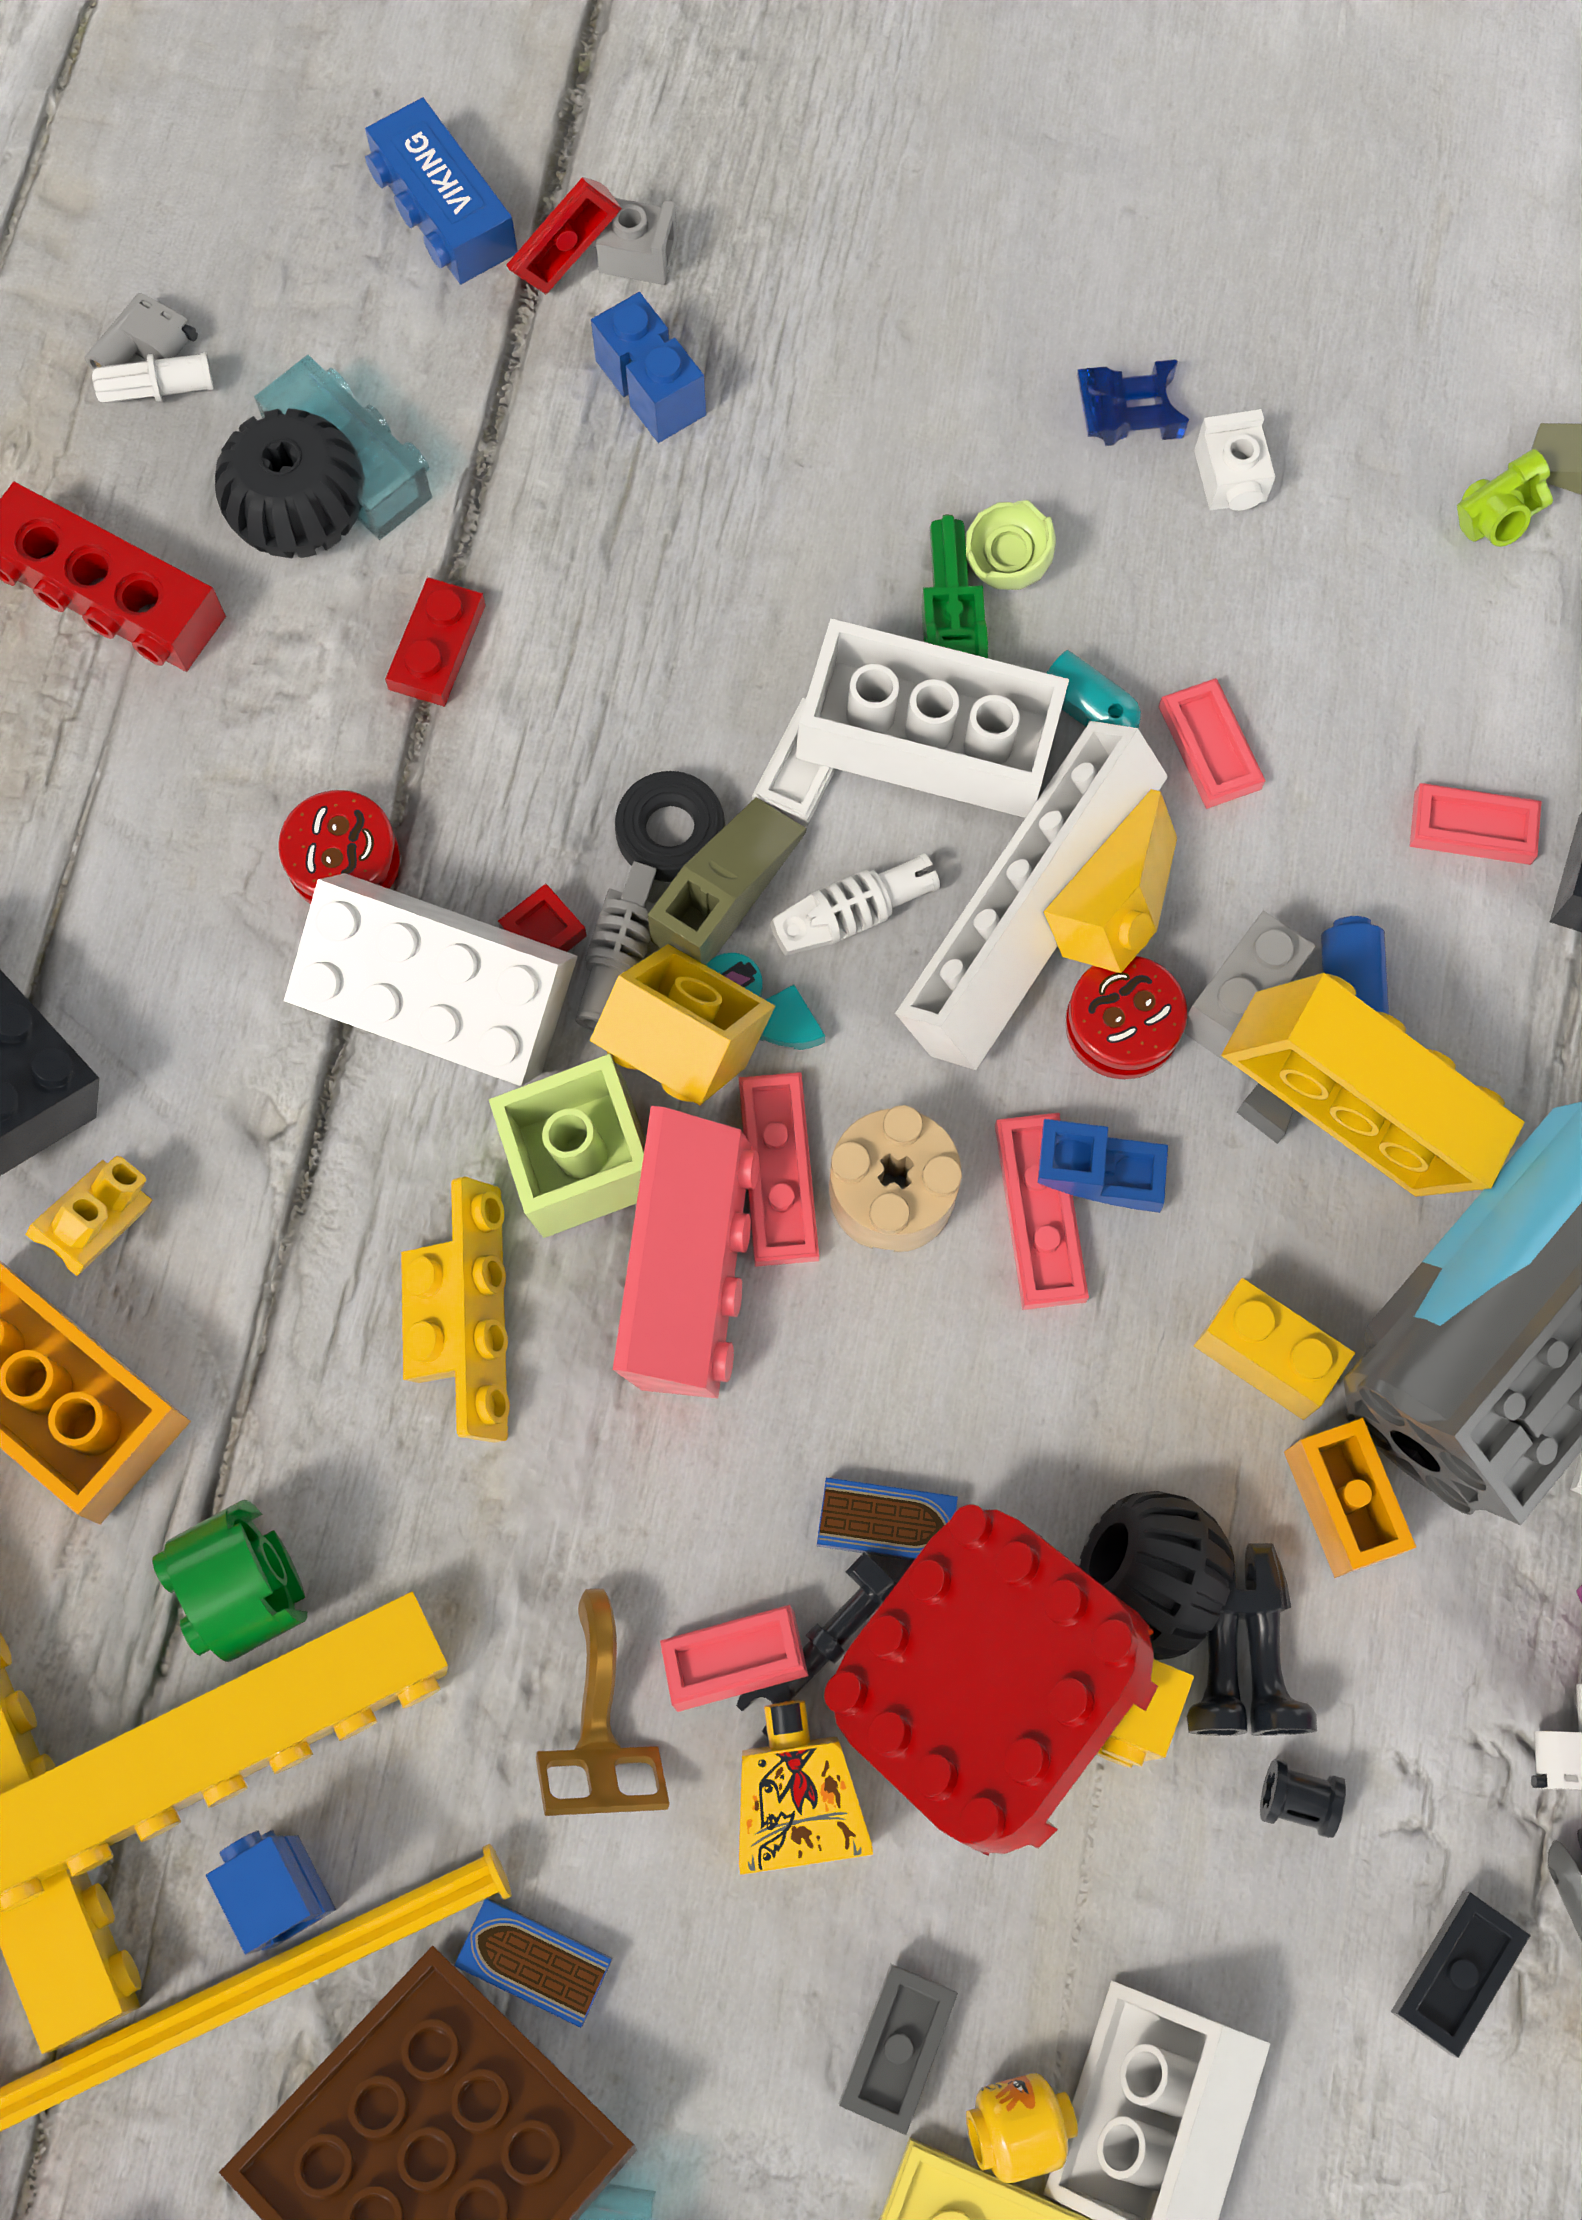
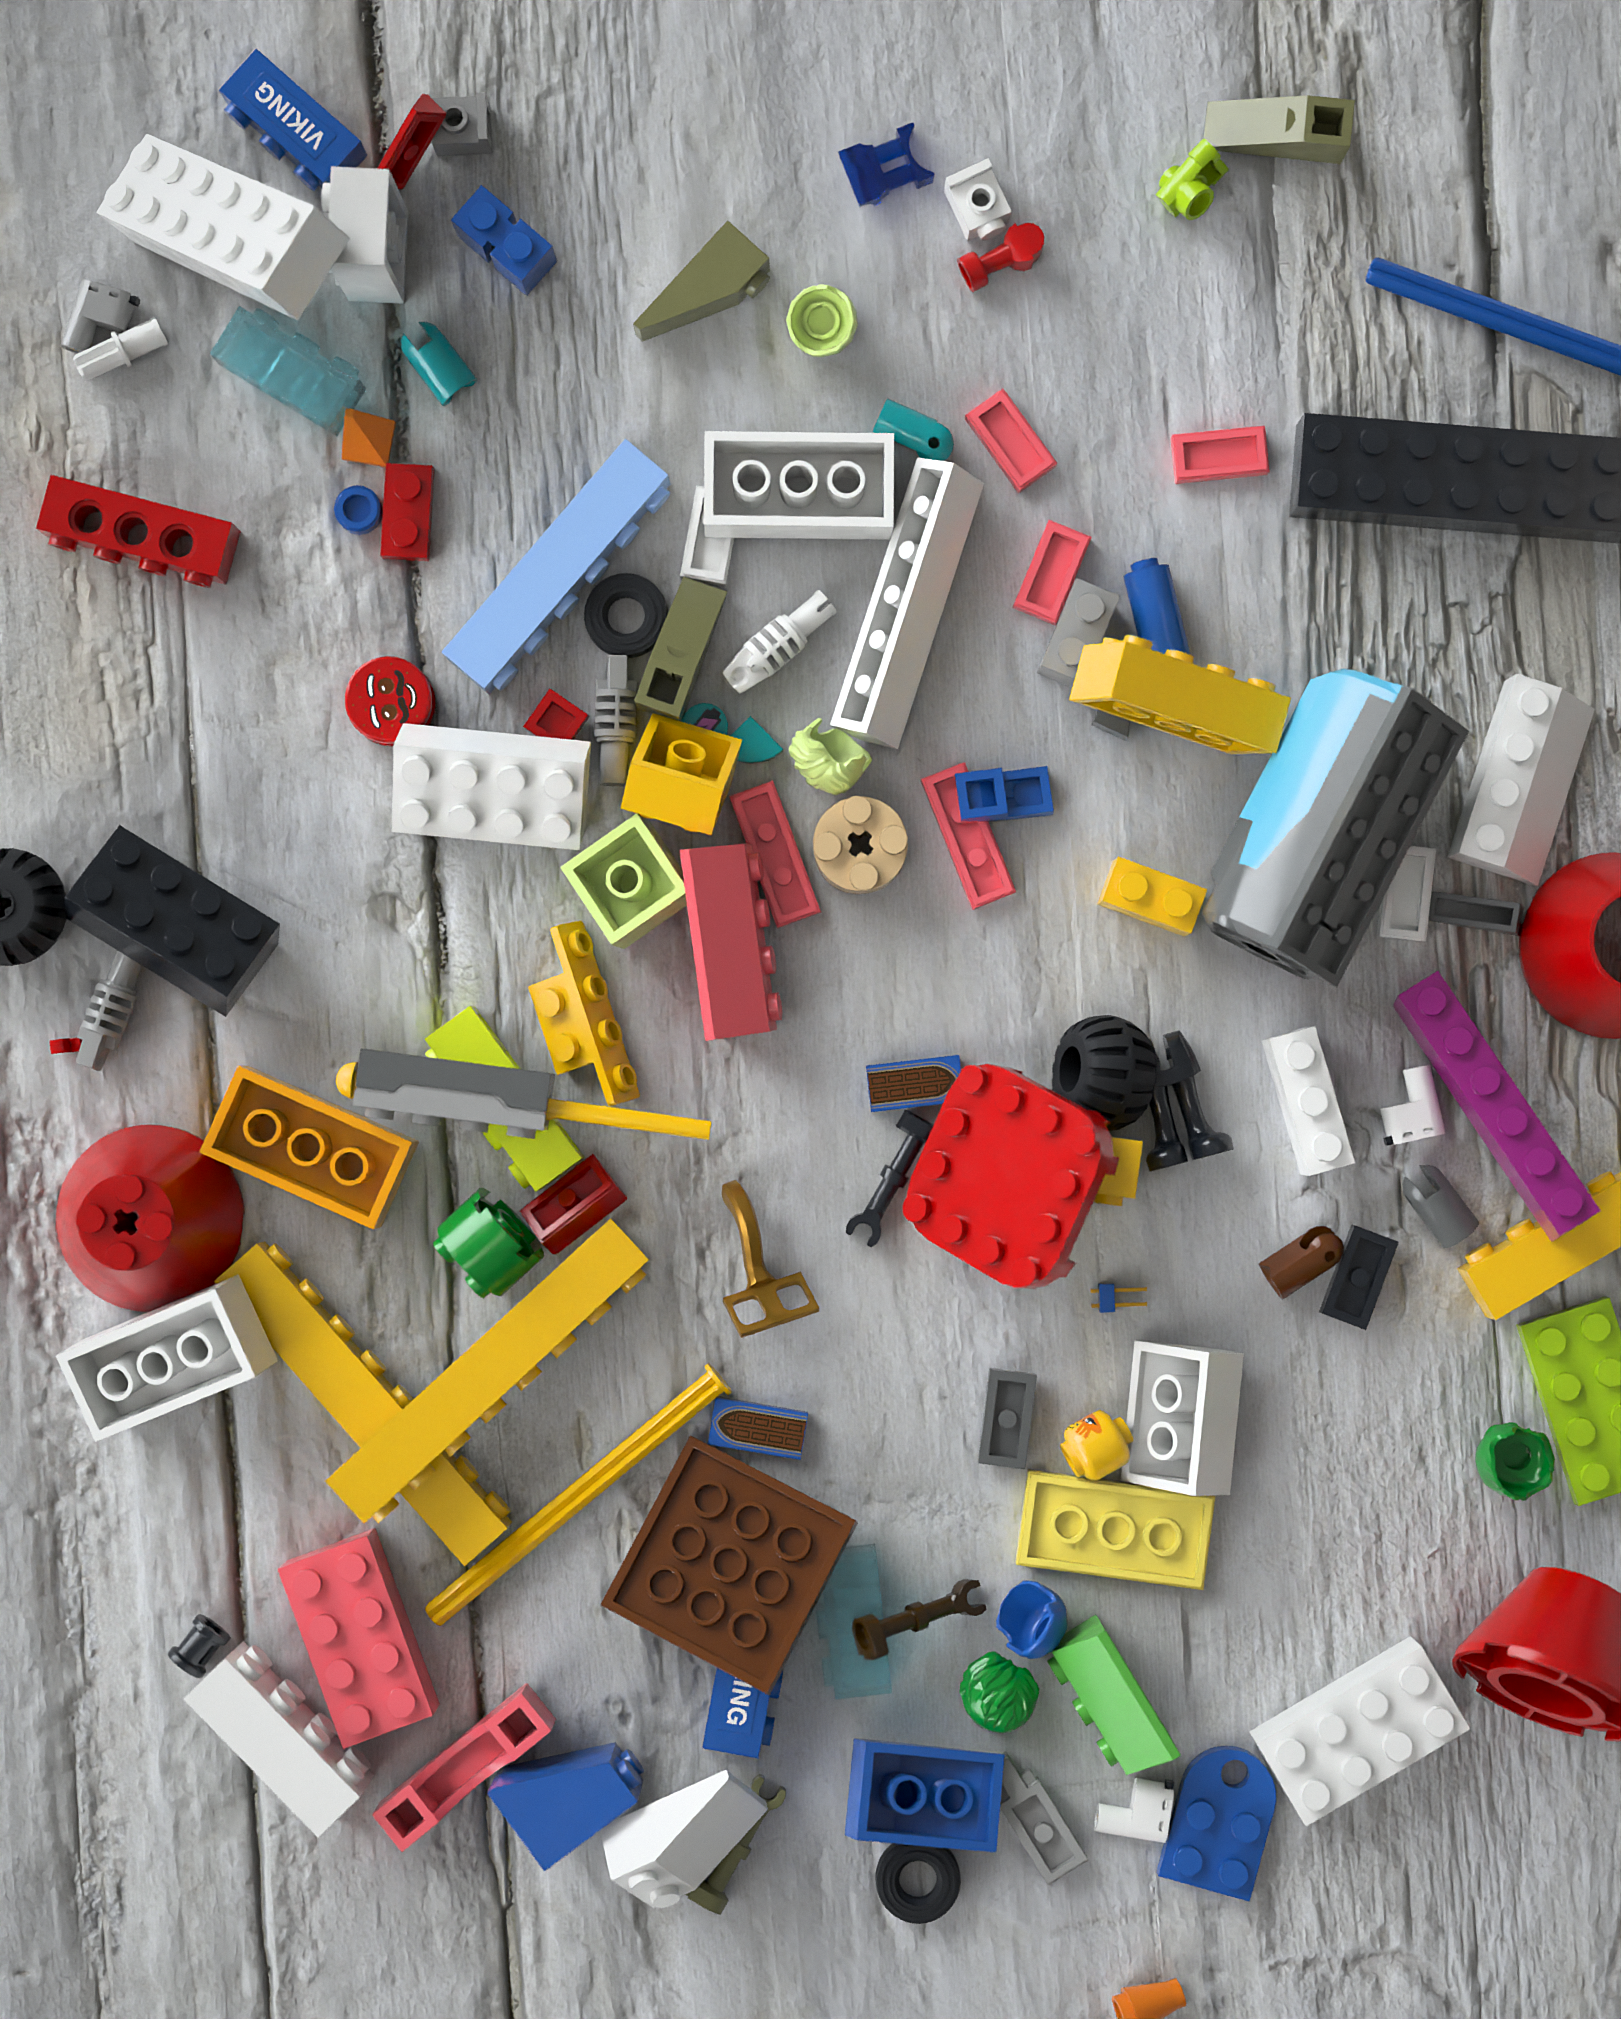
camera: 10 degrees left, 15 degrees up
(92, 1213) = (306, 1019): yellow hips -> none
(268, 1890) = (577, 1430): blue piece -> none
(288, 483) = (278, 437): black wheel -> none
(289, 1370) = (483, 1097): none -> piece
(316, 241) = (223, 225): none -> white brick
(320, 1392) = (535, 1160): none -> neon yellow brick
(370, 1566) = (573, 1205): none -> red slope
(376, 624) = (358, 510): none -> blue tile
(413, 545) = (367, 438): none -> orange slope
(483, 303) = (376, 219): none -> white brick
(527, 485) = (438, 364): none -> teal piece
(599, 746) = (558, 567): none -> light blue brick
(733, 1658) = (835, 1202): coral tile -> none
(797, 1798) = (902, 1282): yellow torso -> none
(878, 475) = (710, 283): none -> olive slope
(878, 1063) = (828, 759): none -> yellowish green hair
(951, 608) = (791, 385): green connector -> none
(1085, 1907) = (1106, 1297): none -> piece
(1120, 891) = (969, 591): yellow slope -> none
(1126, 1020) = (995, 677): red head -> none
(1227, 909) = (1052, 572): none -> coral tile
(1270, 531) = (1019, 251): none -> red leg
(1302, 1799) = (1234, 1194): black bush -> none
(1349, 1498) = (1224, 988): light orange brick -> none
(1382, 1926) = (1302, 1260): none -> reddish brown piece
(1436, 1690) = (1308, 1101): none -> white brick

